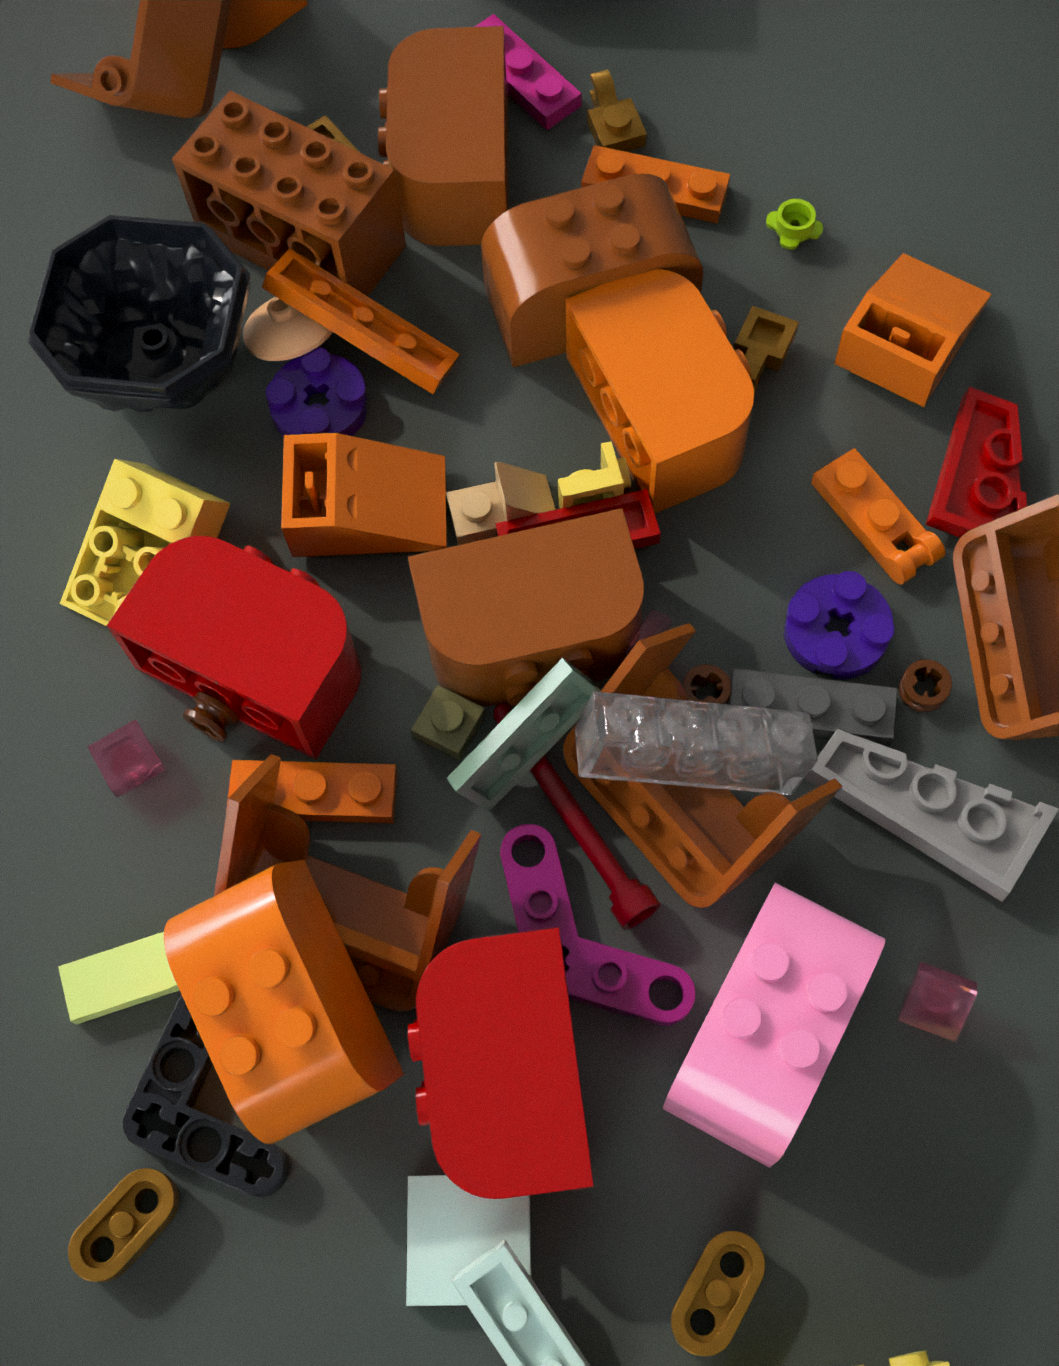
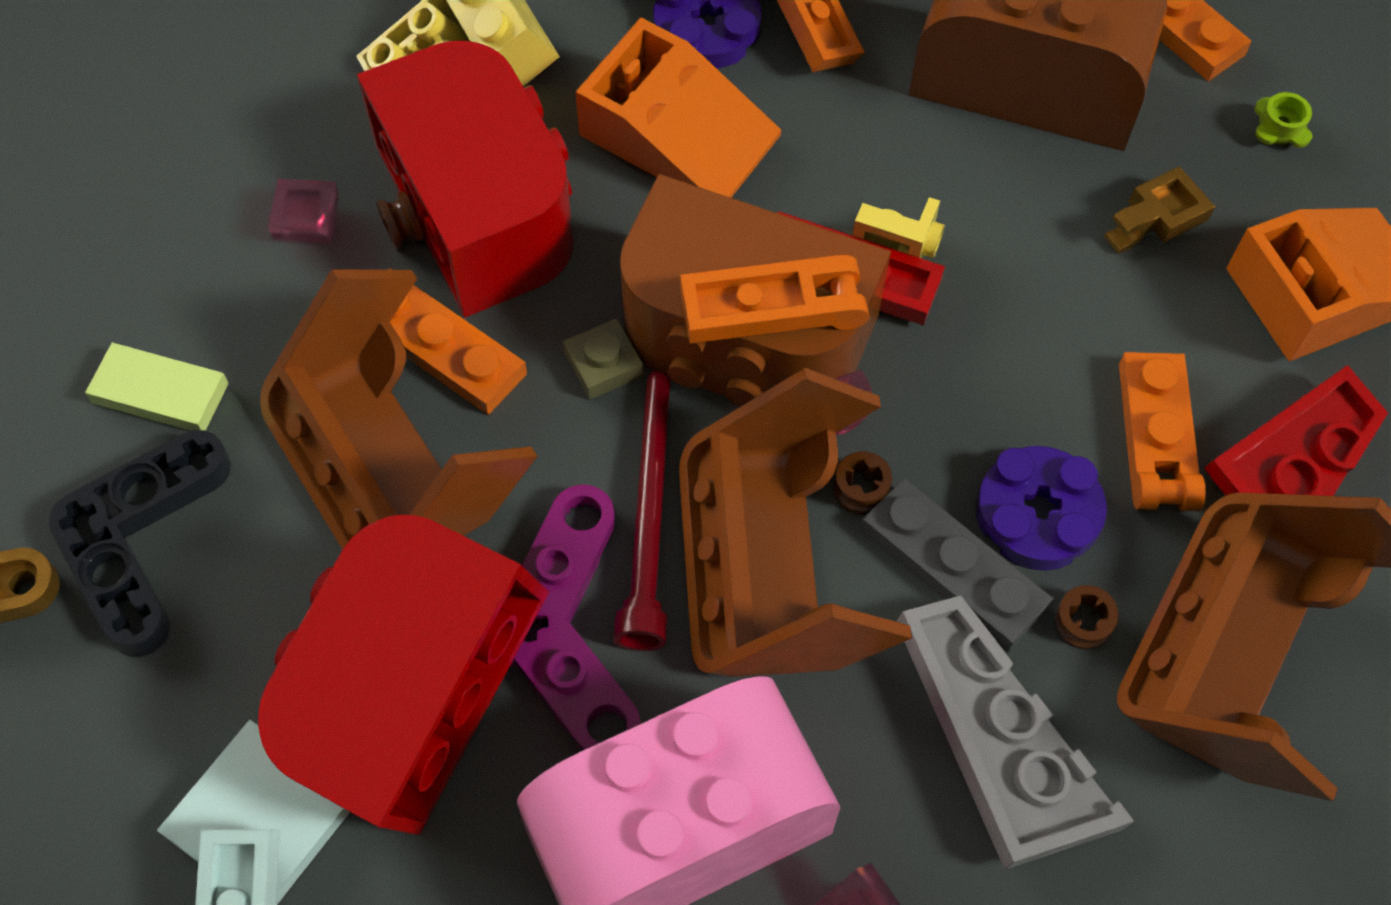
camera: 30 degrees right, 5 degrees down
(279, 1002) = (242, 477): orange brick -> none
(510, 497) = (813, 196): tan slope -> none
(523, 736) = (652, 402): sand green plate -> none
(571, 603) = (773, 298): none -> orange plate
(662, 382) = (1032, 180): orange brick -> none
(694, 743) = (803, 510): clear brick -> none

